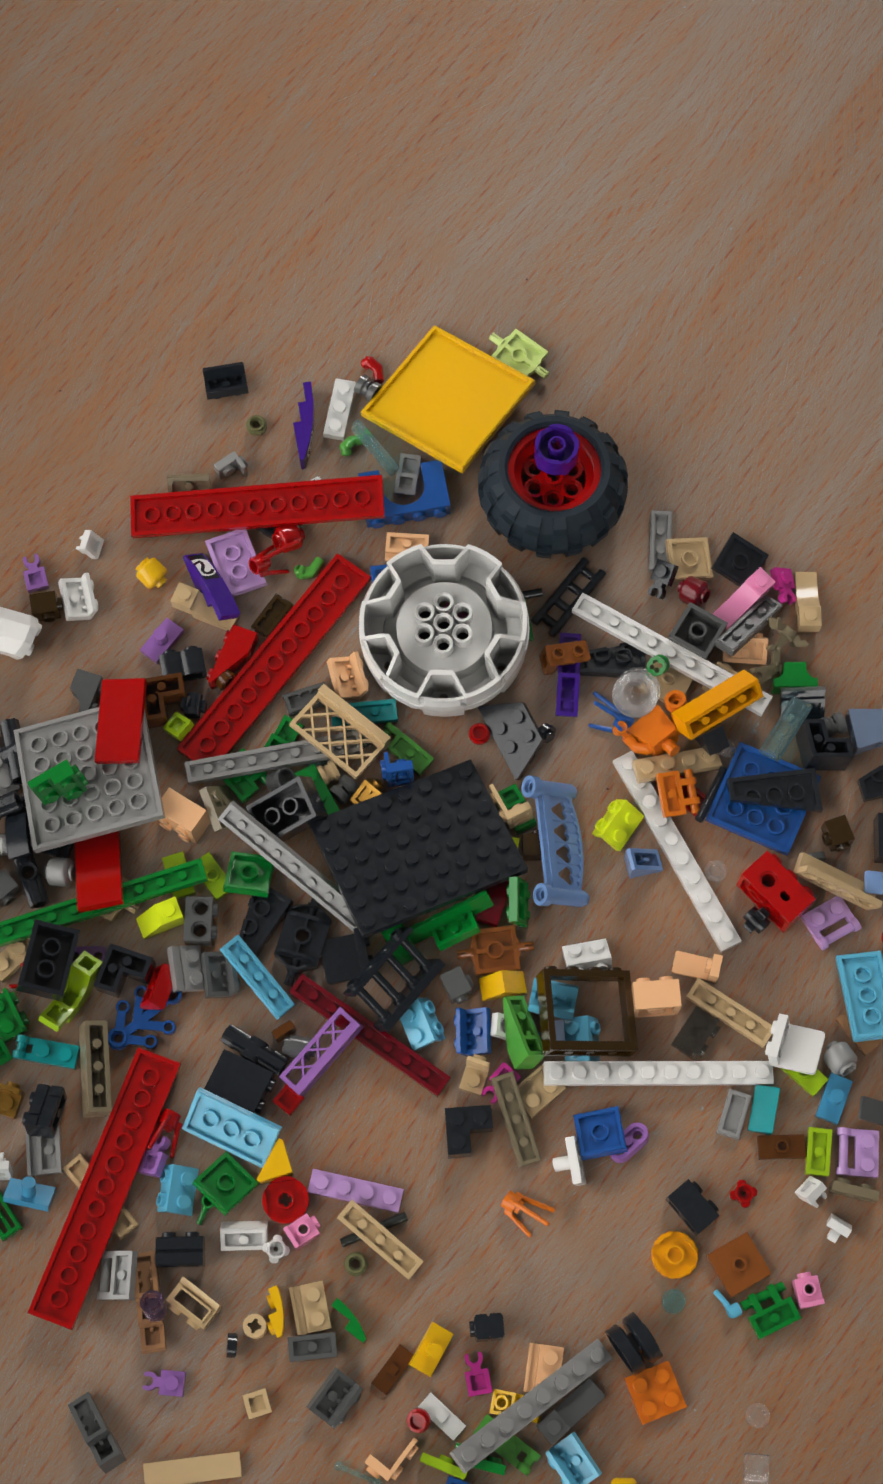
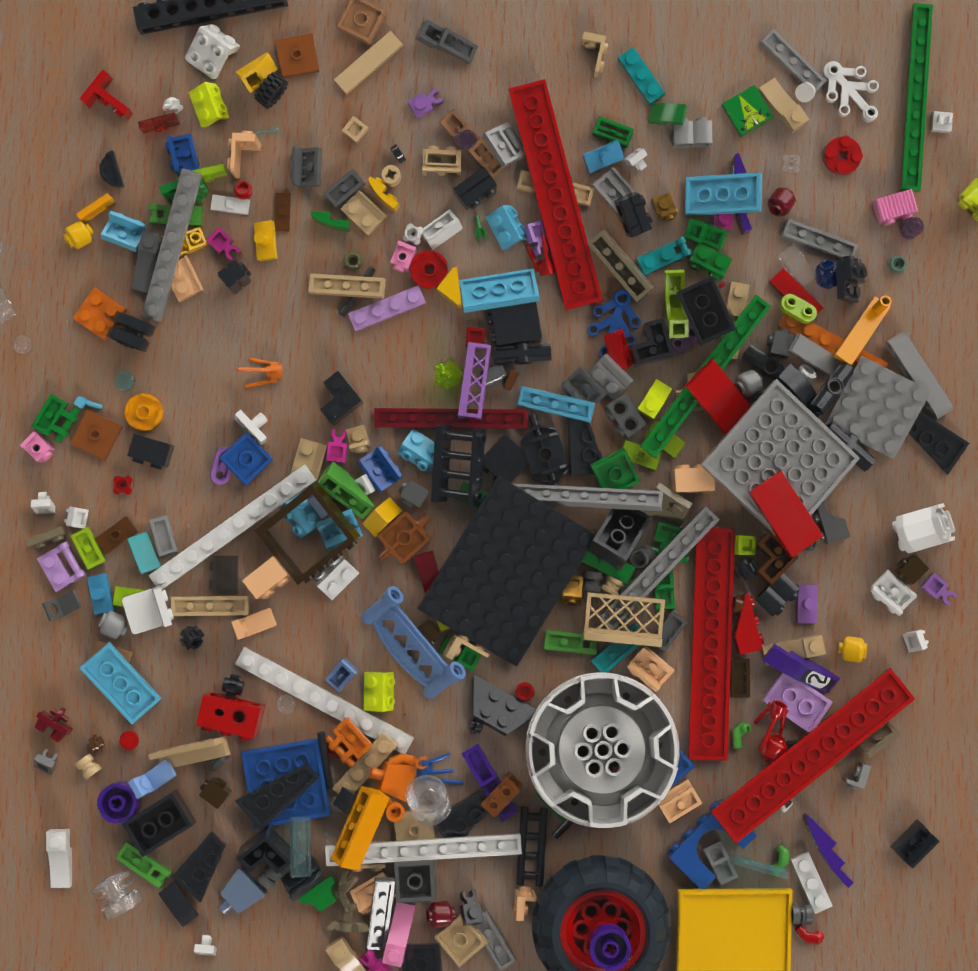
camera: 140 degrees right, 15 degrees up
(59, 781) = (791, 439): green plate -> none
(225, 1183) = (477, 252): green tile -> none
(253, 420) = (870, 824): olive plate -> none
(341, 1078) = (452, 369): none -> clear neon green brick
(396, 773) = (559, 621): blue bracket -> none
(453, 923) = (444, 534): green bracket -> none
(516, 1119) = (310, 429): dark tan tile -> none
(518, 896) = (405, 575): green plate -> none
(609, 556) = (521, 897): none -> light nougat bracket
(655, 671) = (426, 826): green bush -> none
(768, 993) = (191, 637): none -> black gear
(826, 916) = (185, 726): lavender plate -> none

